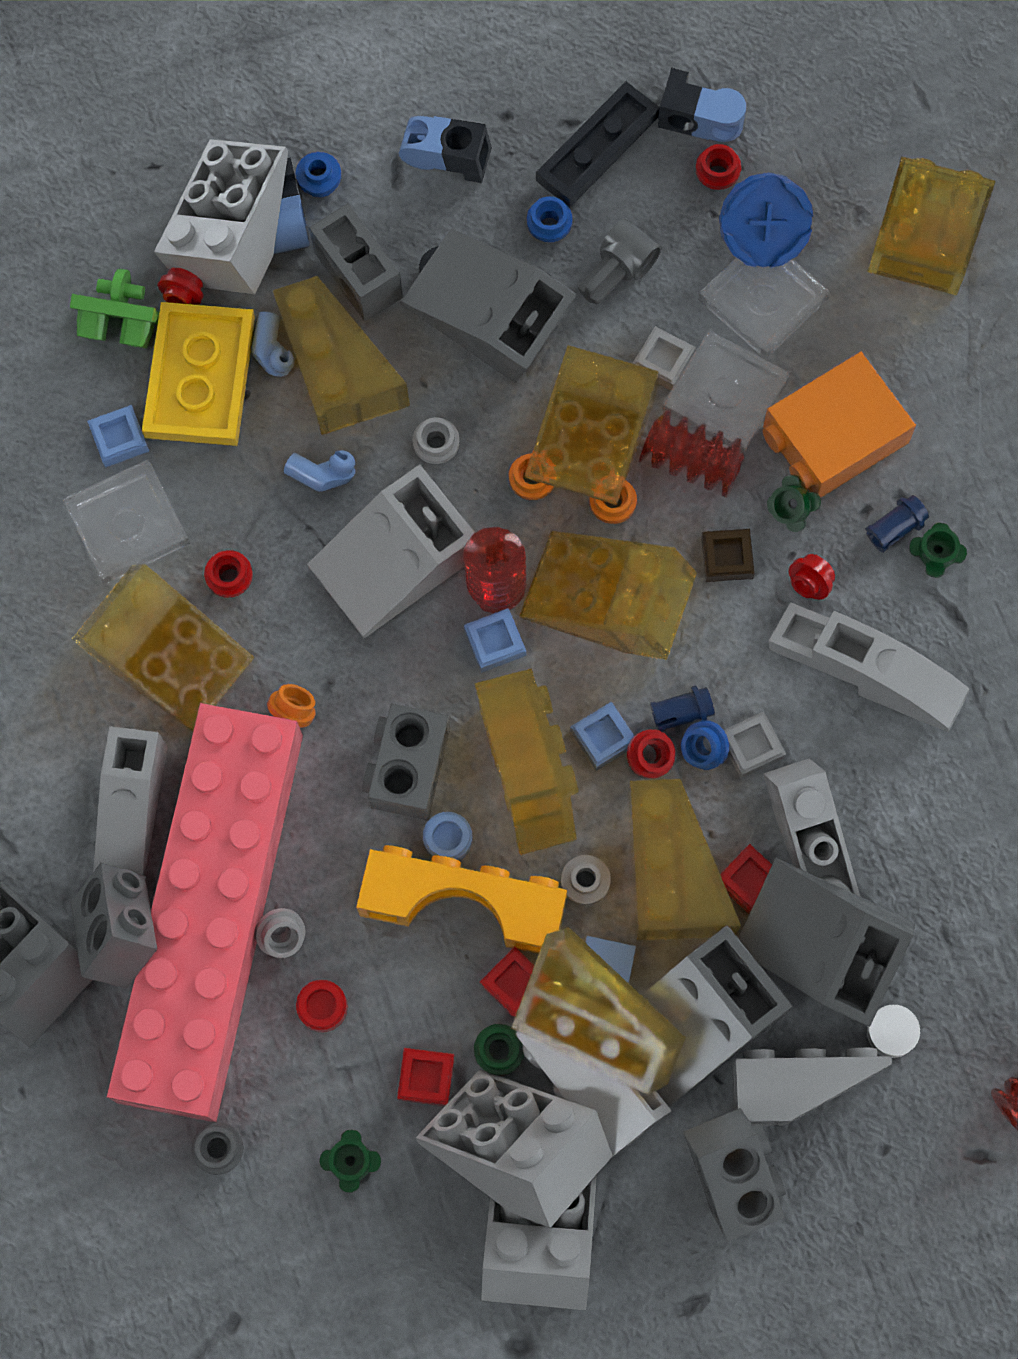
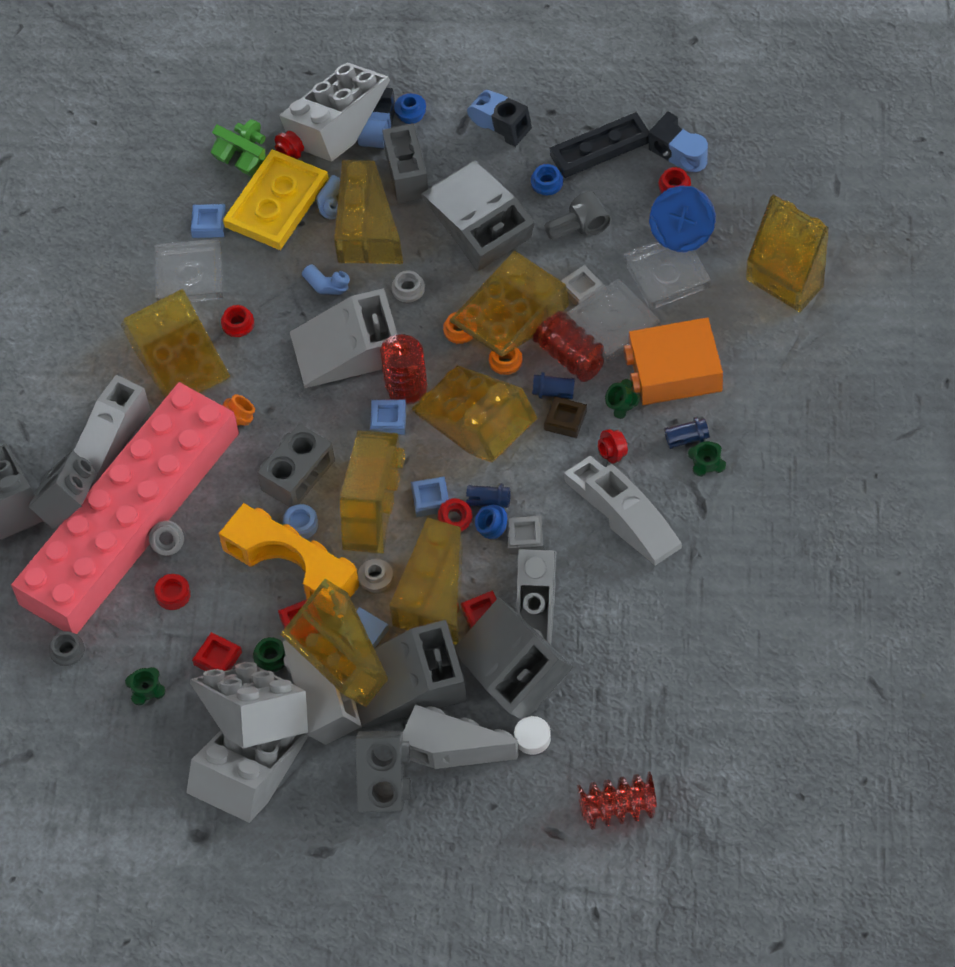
camera: 25 degrees right, 15 degrees down
(695, 518) = (553, 386): none -> dark blue pin

